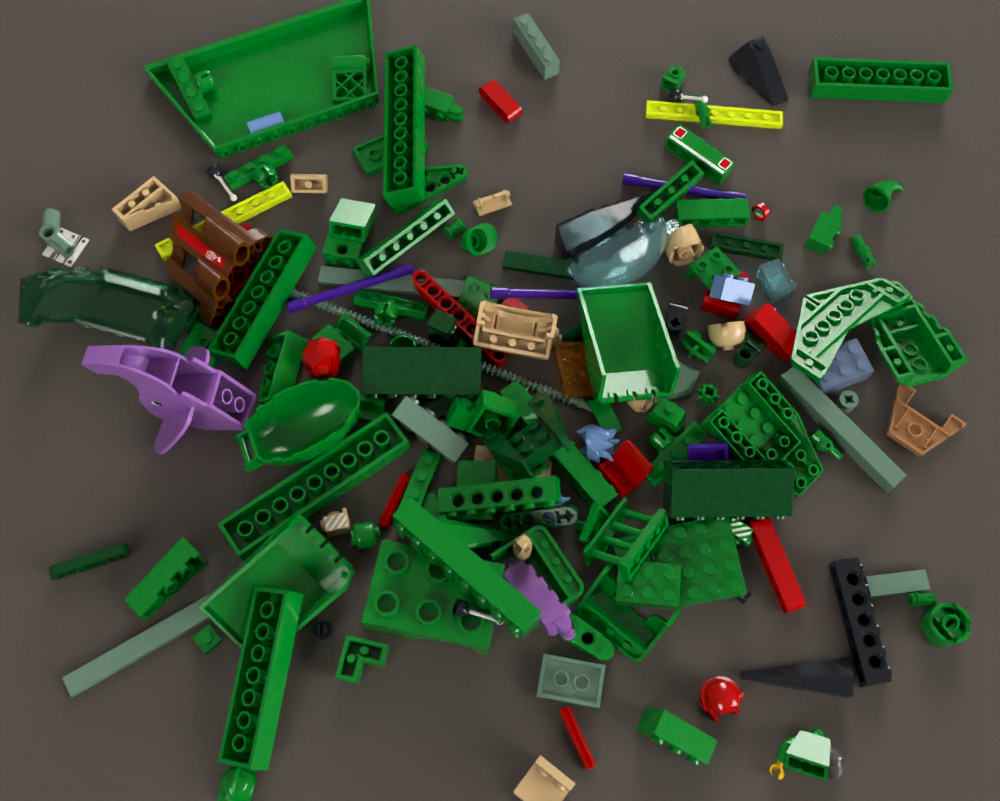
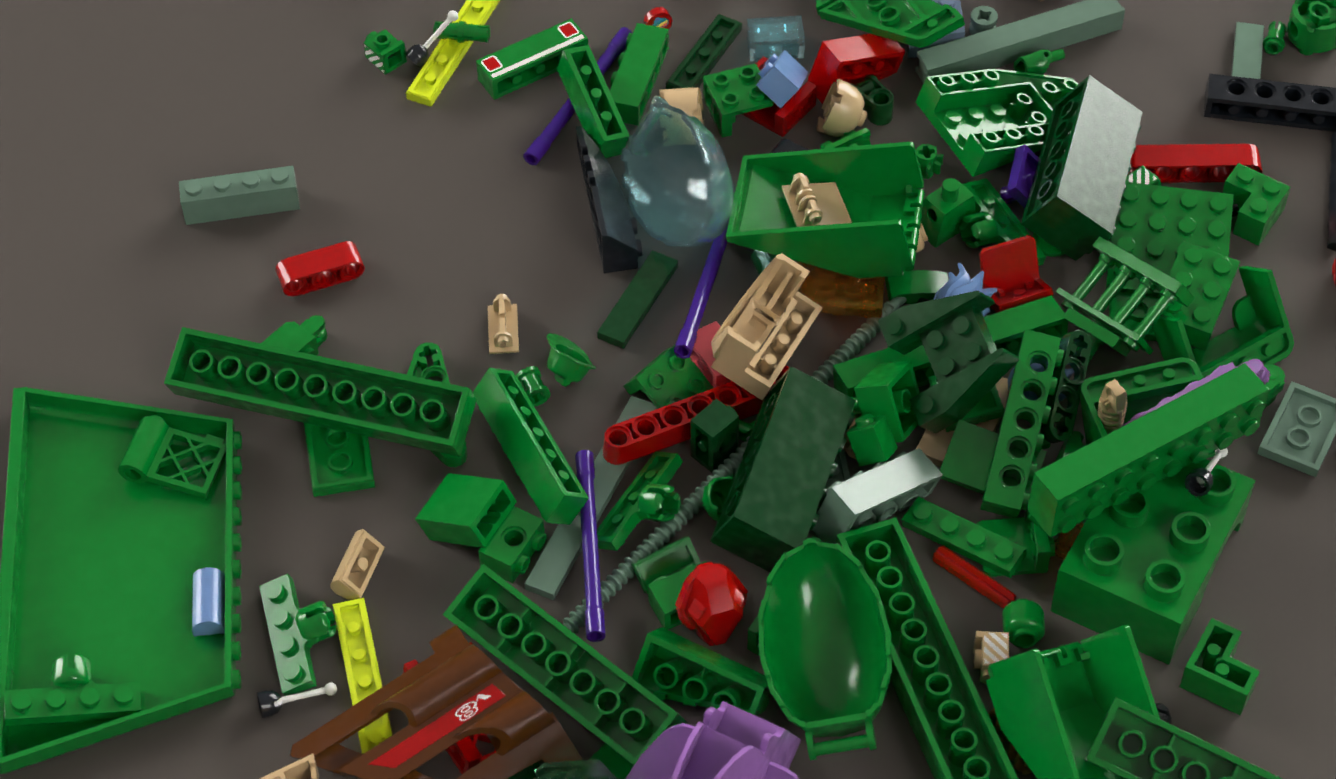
camera: 70 degrees left, 15 degrees down
(628, 335) = (815, 202): none -> tan hinge
(757, 616) = (1259, 202): none -> green brick

